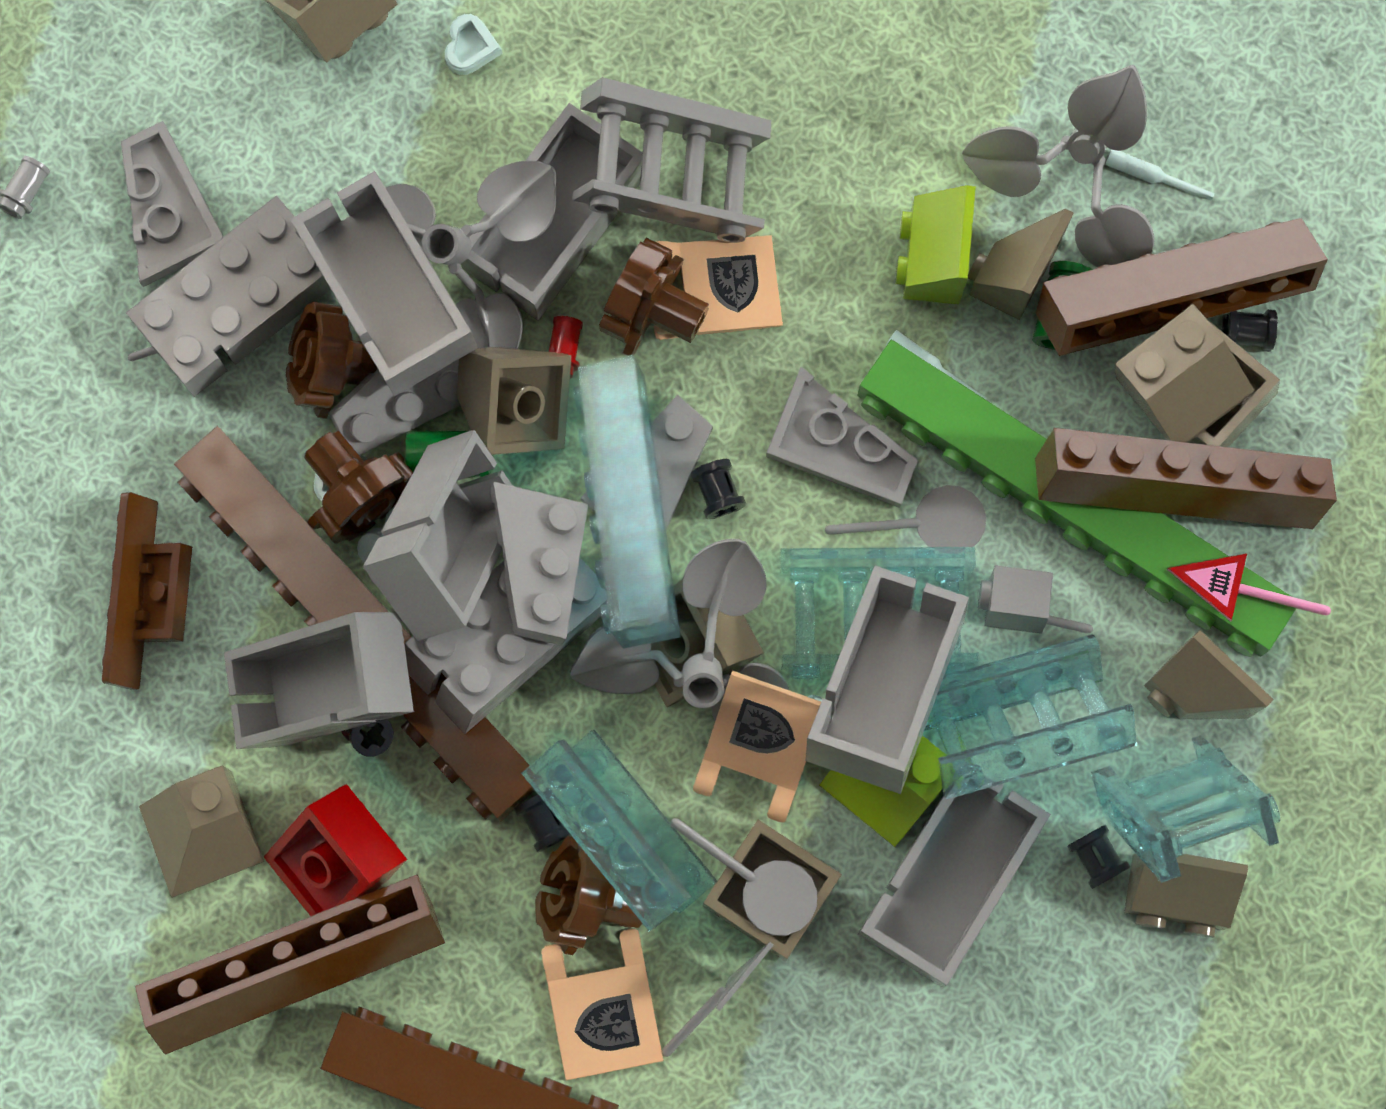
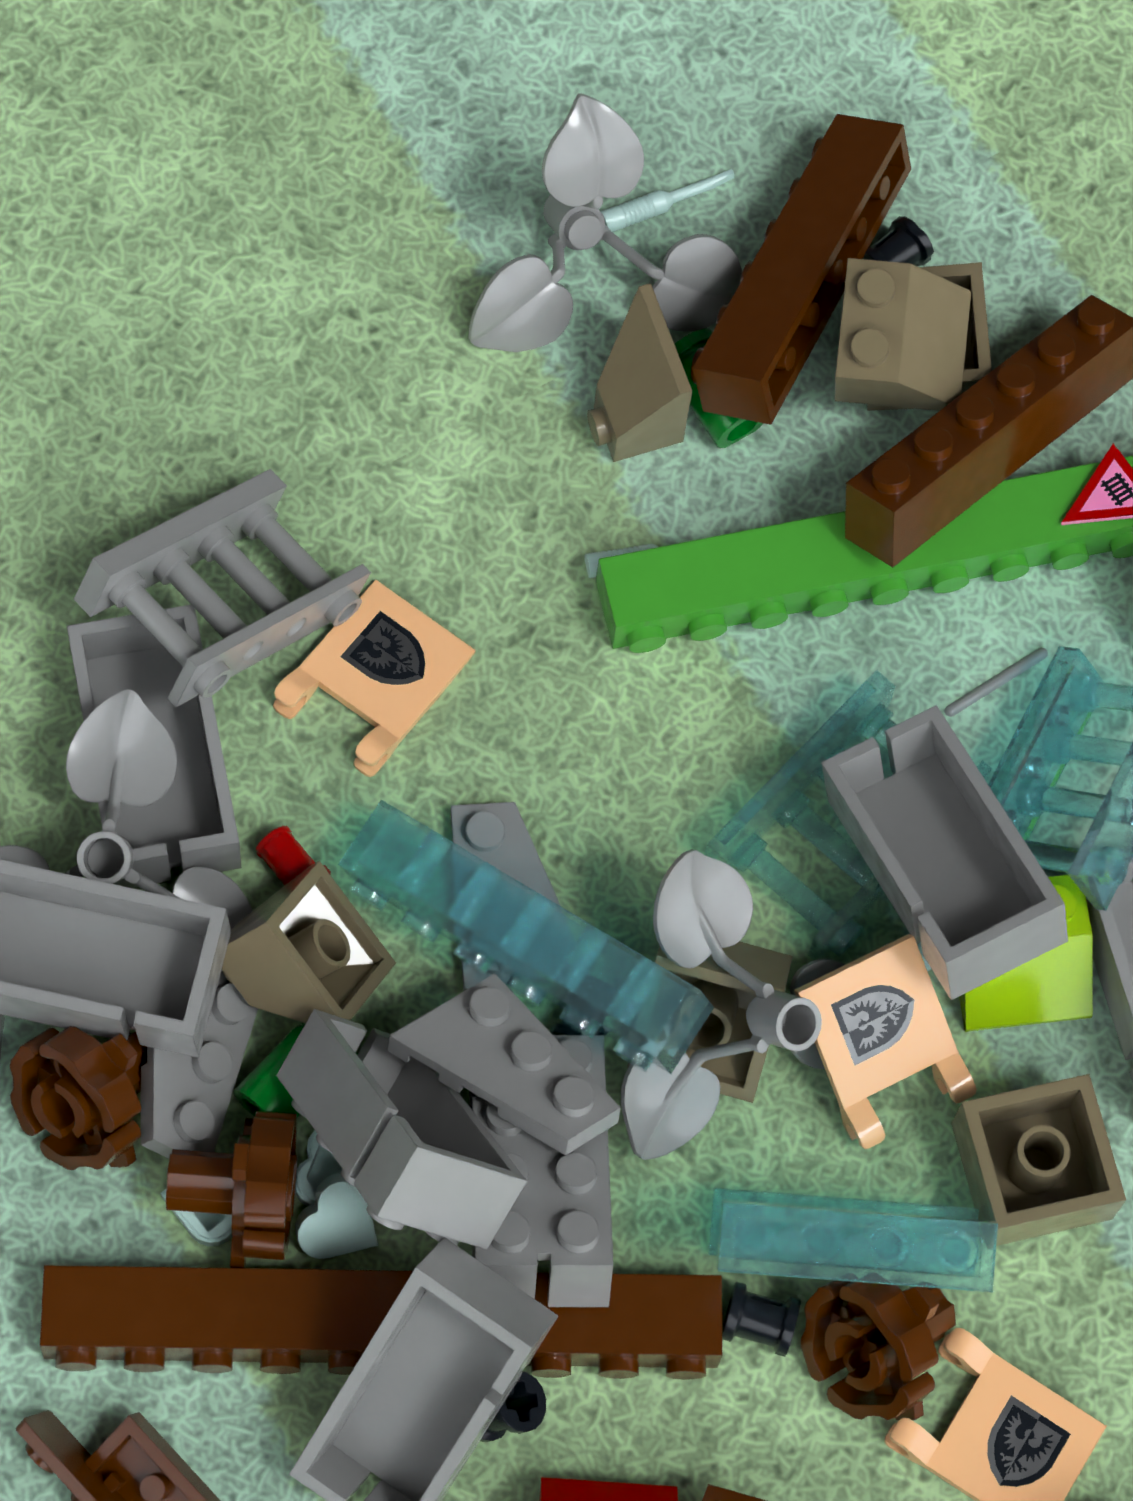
camera: 55 degrees left, 10 degrees down
(647, 297) = (335, 734): reddish brown piece -> none
(718, 488) = (583, 853): black bush -> none
(719, 999) = (1101, 1282): light grey piece -> none
(776, 895) = (1054, 1150): light grey piece -> none
(838, 445) = (645, 708): light grey wing -> none
(937, 245) = (548, 435): lime slope -> none
(943, 519) = (811, 680): light grey piece -> none
(1016, 599) = (961, 679): light grey brick -> none

